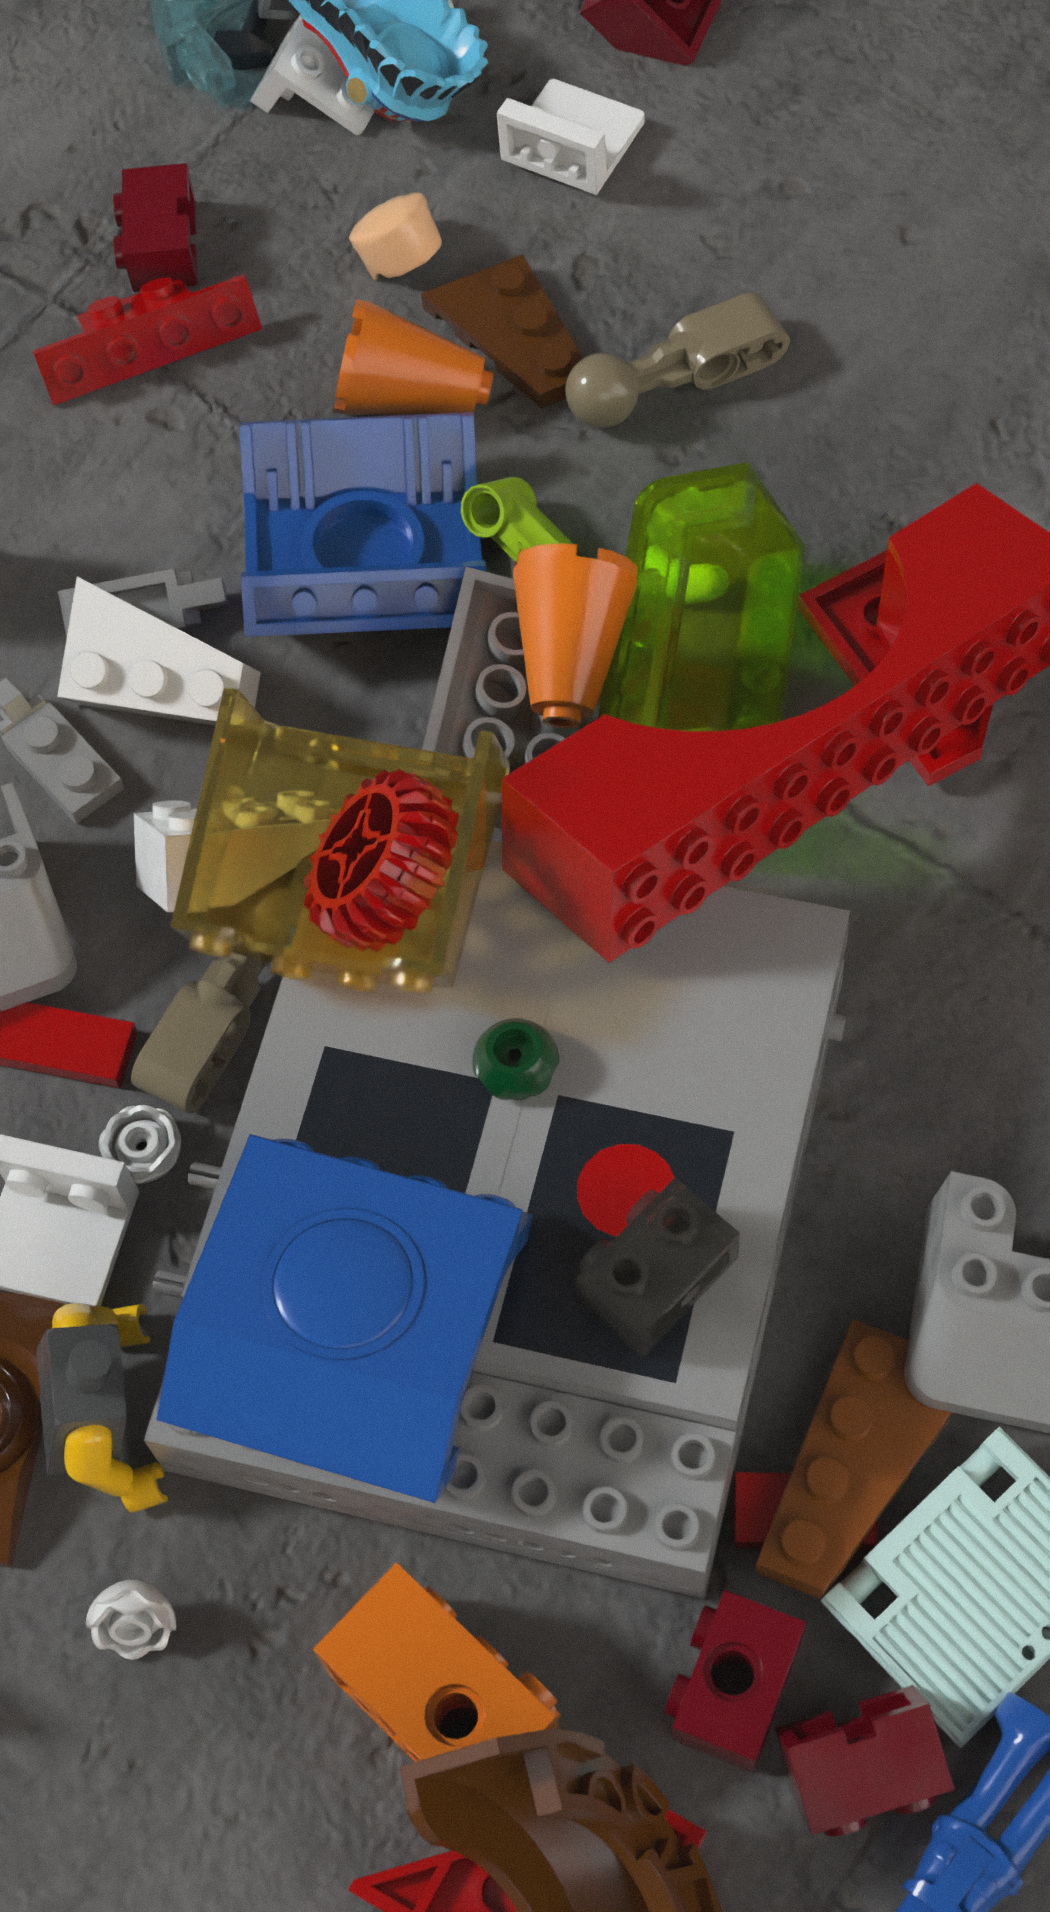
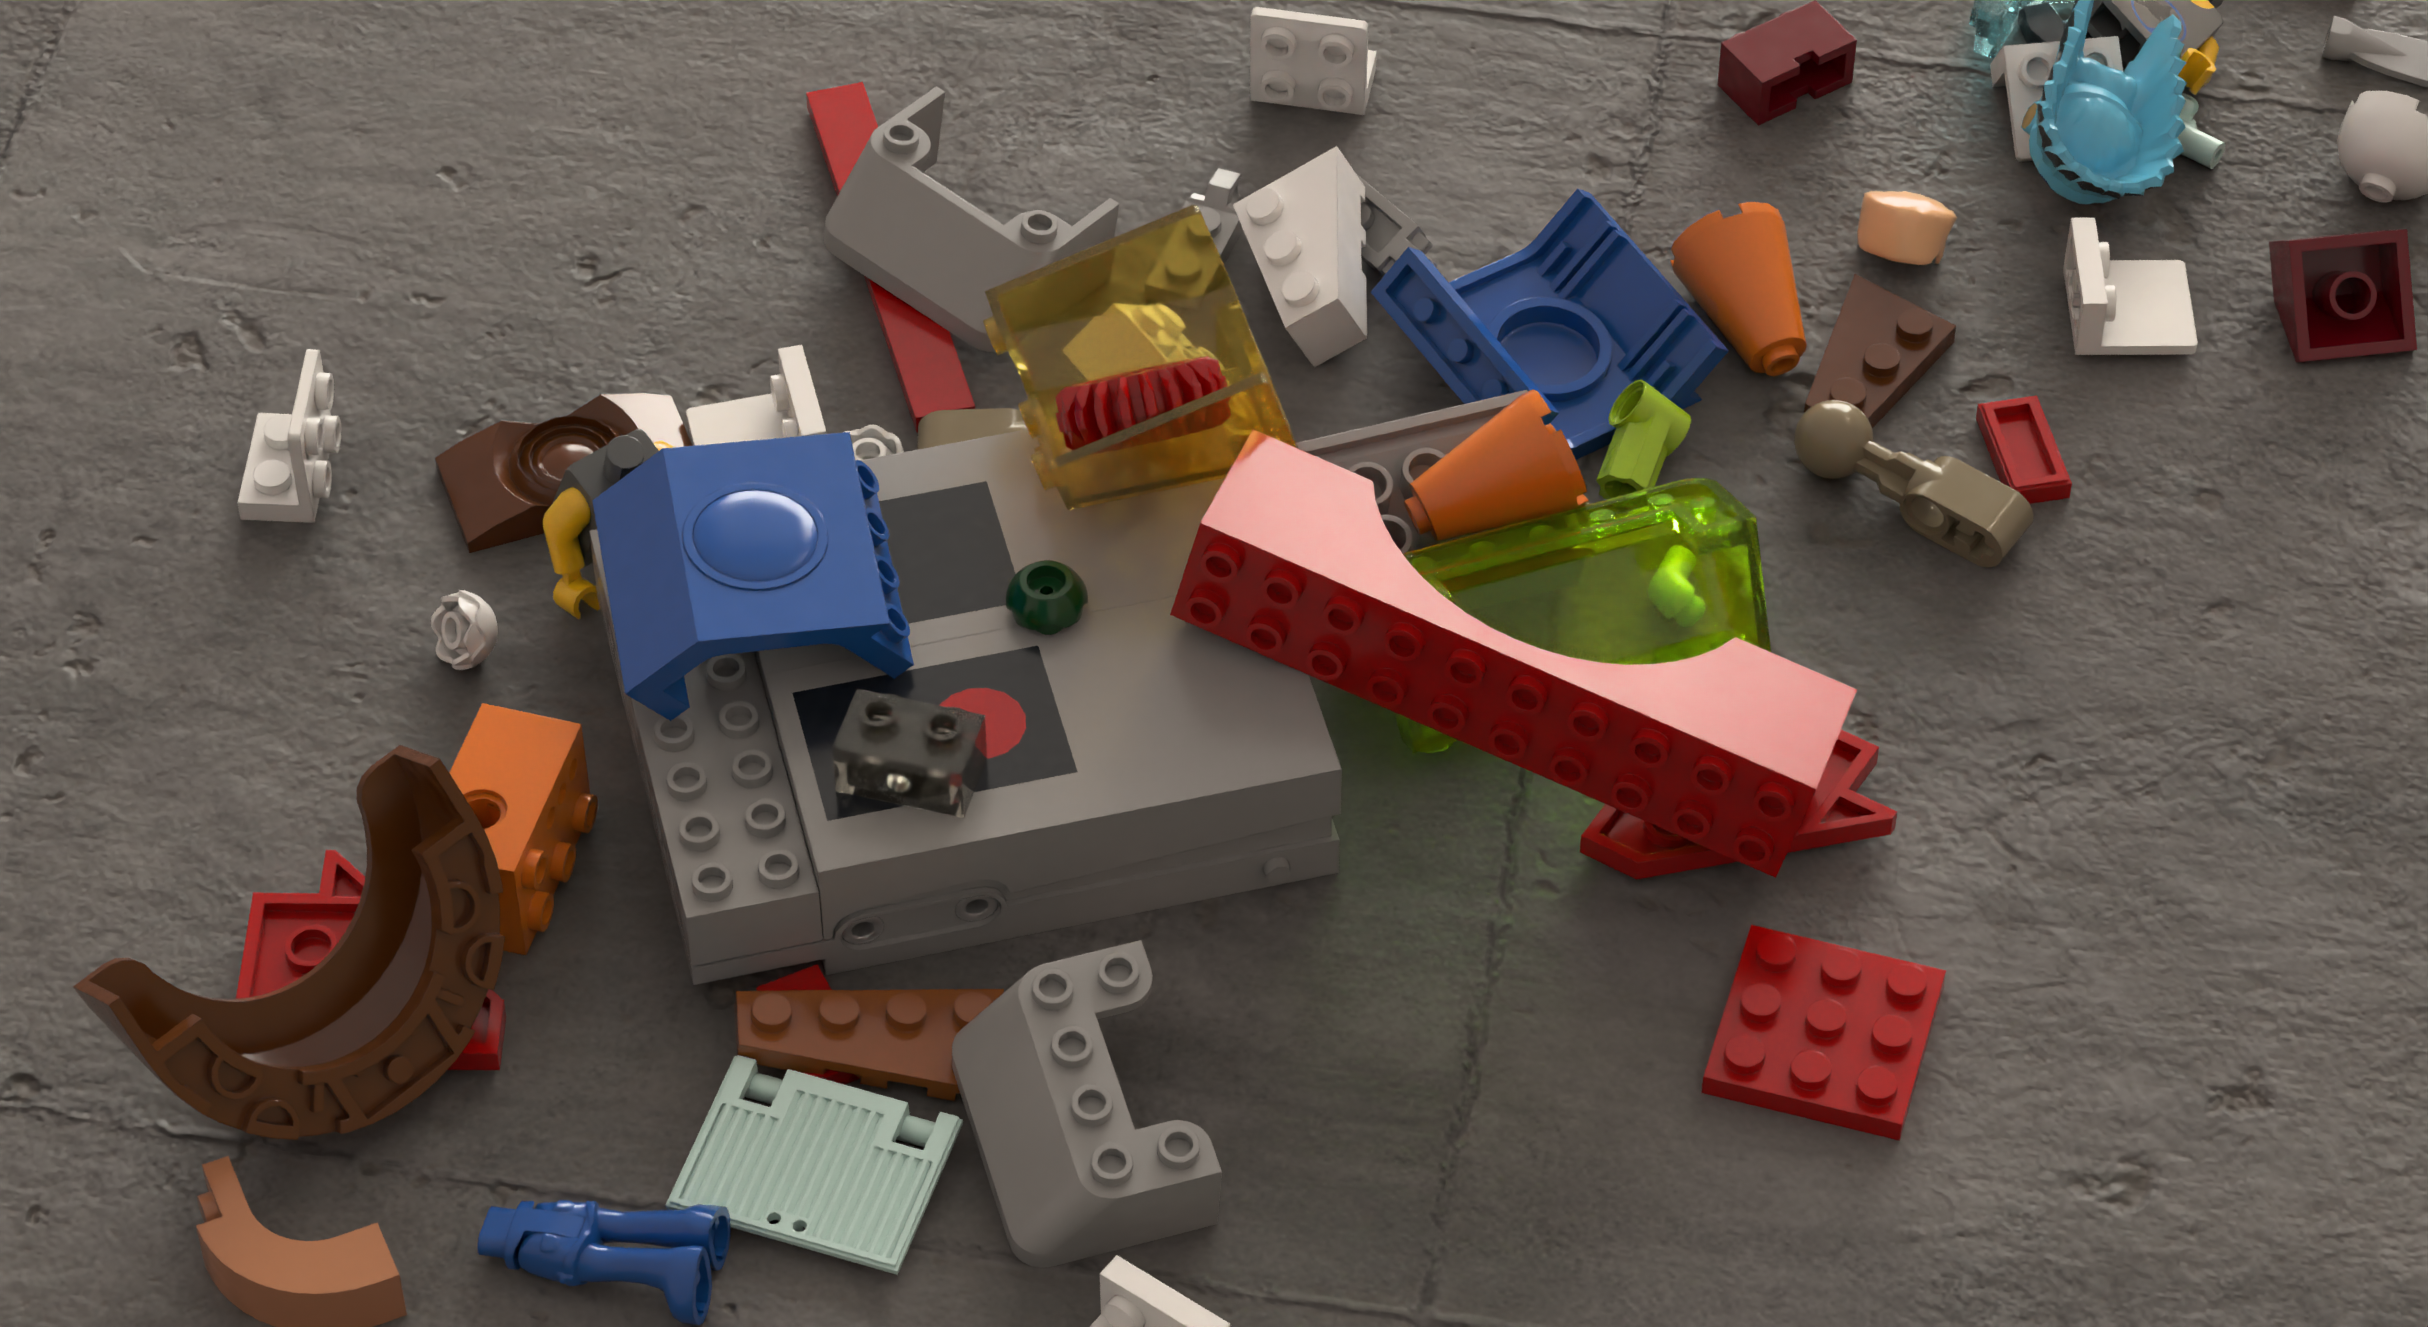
camera: 55 degrees right, 15 degrees down
(145, 333) = (1664, 105): red bracket -> none
(674, 275) = (2024, 449): none -> red tile
(735, 1725) = (634, 1030): dark red brick -> none
(866, 1763) = (611, 1129): dark red brick -> none

